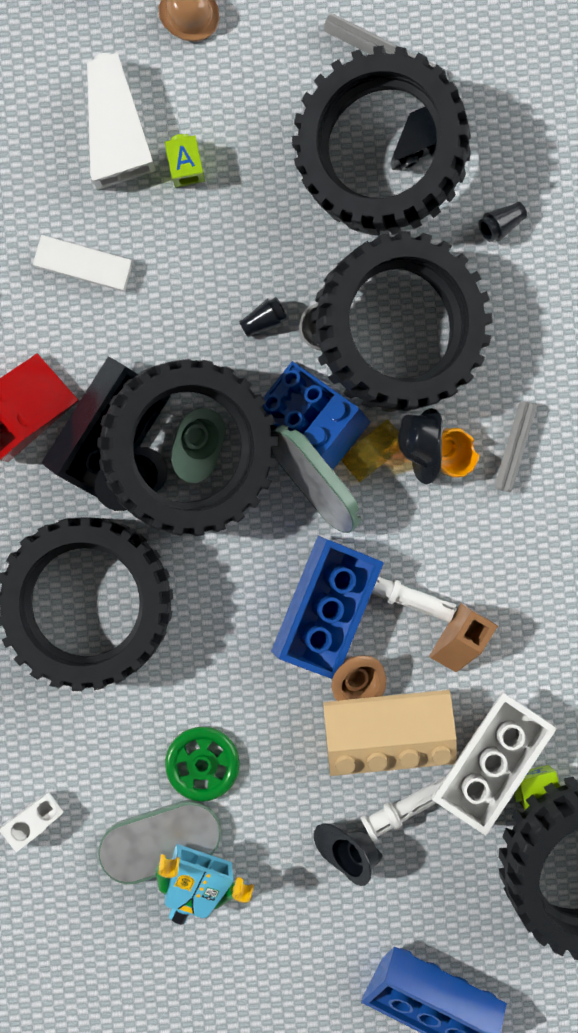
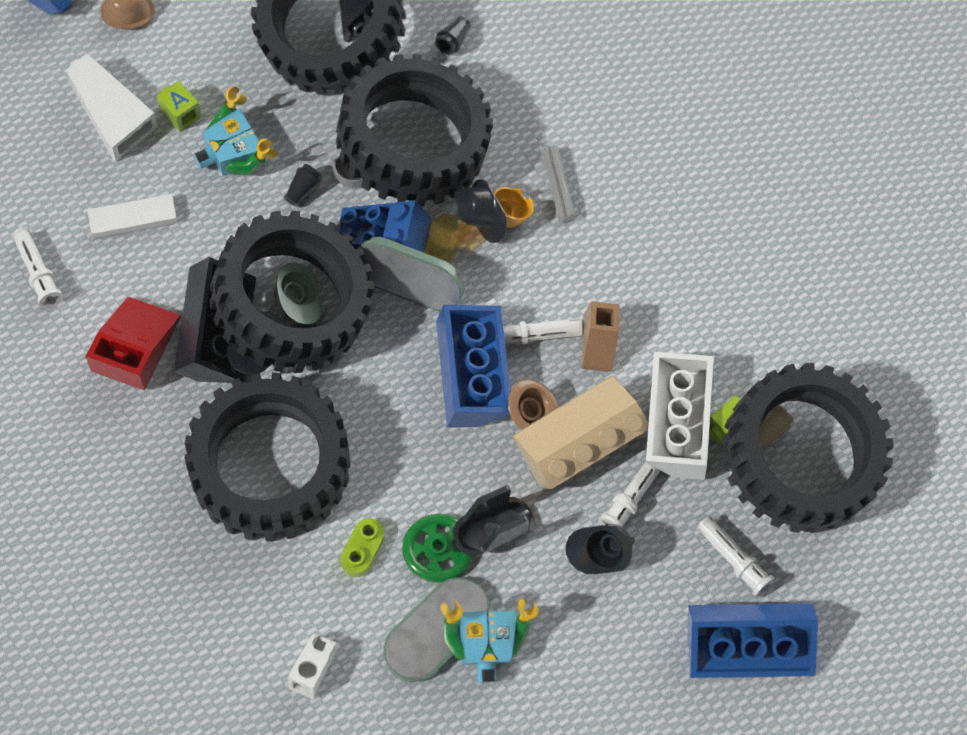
camera: 30 degrees left, 25 degrees down
(133, 728) = (364, 546): none -> lime plate
(217, 233) = (232, 141): none -> torso
(284, 780) = (498, 507): none -> black piece
(468, 930) = (744, 565): none -> white pin

